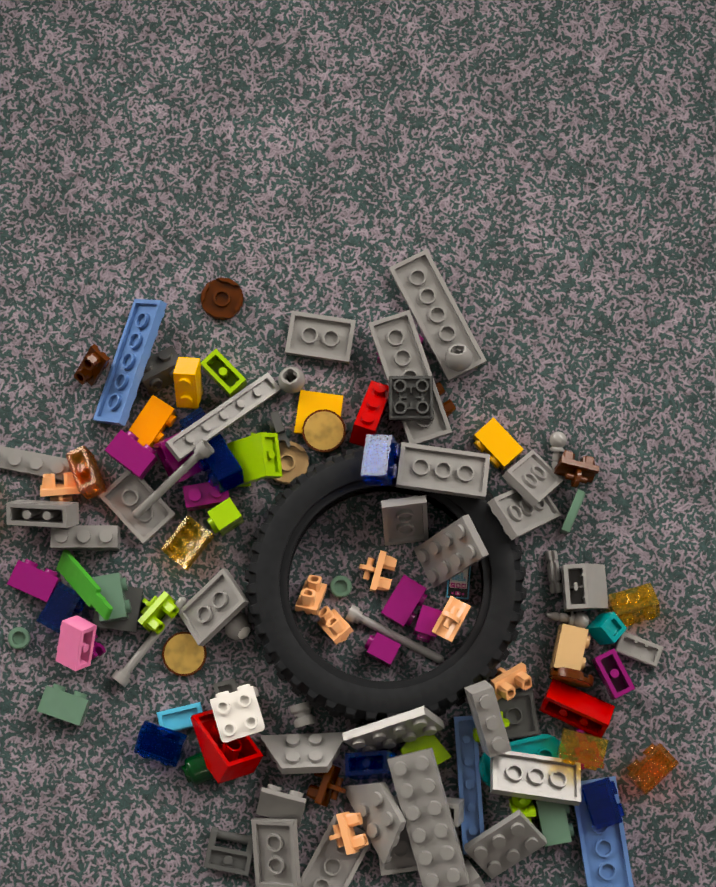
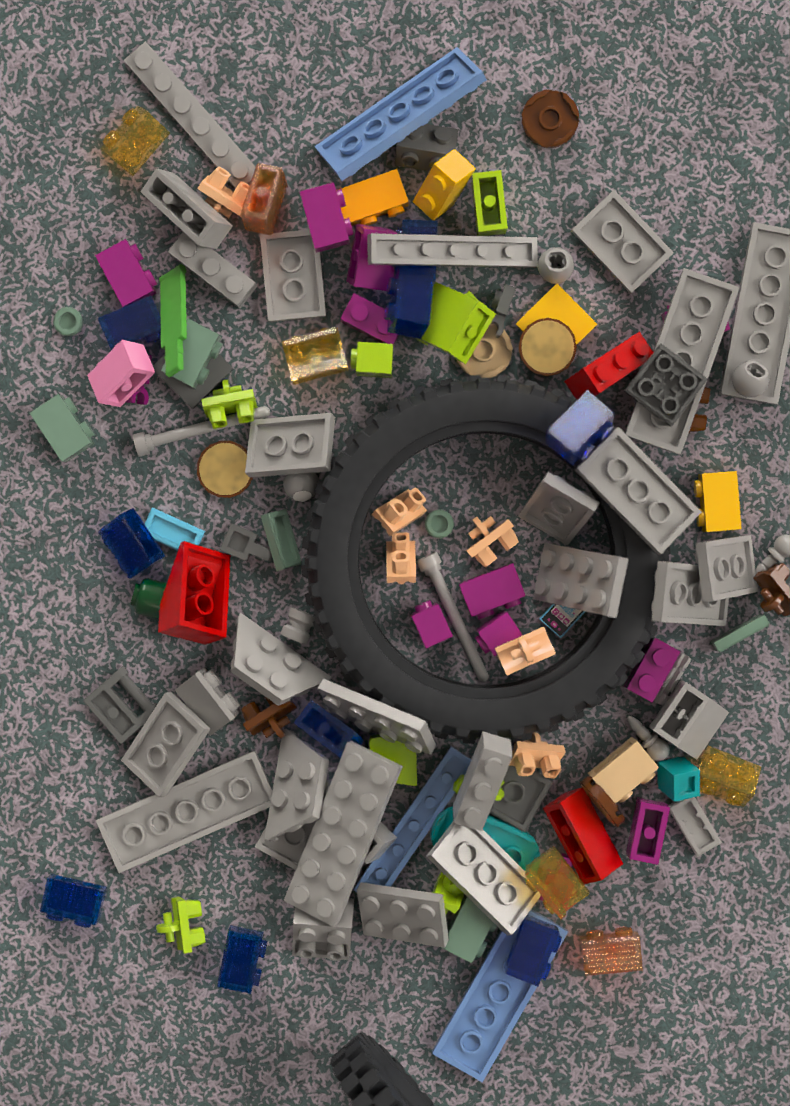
camera: 35 degrees right, 10 degrees up
(92, 366) = (356, 87): reddish brown hips -> none
(202, 450) = (402, 272): light grey piece -> none
(237, 713) = (231, 576): white bracket -> none
(251, 670) = (281, 539): none -> sand green tile
(345, 833) = (250, 779): light nougat hips -> none
(537, 574) = (652, 670): none -> magenta brick

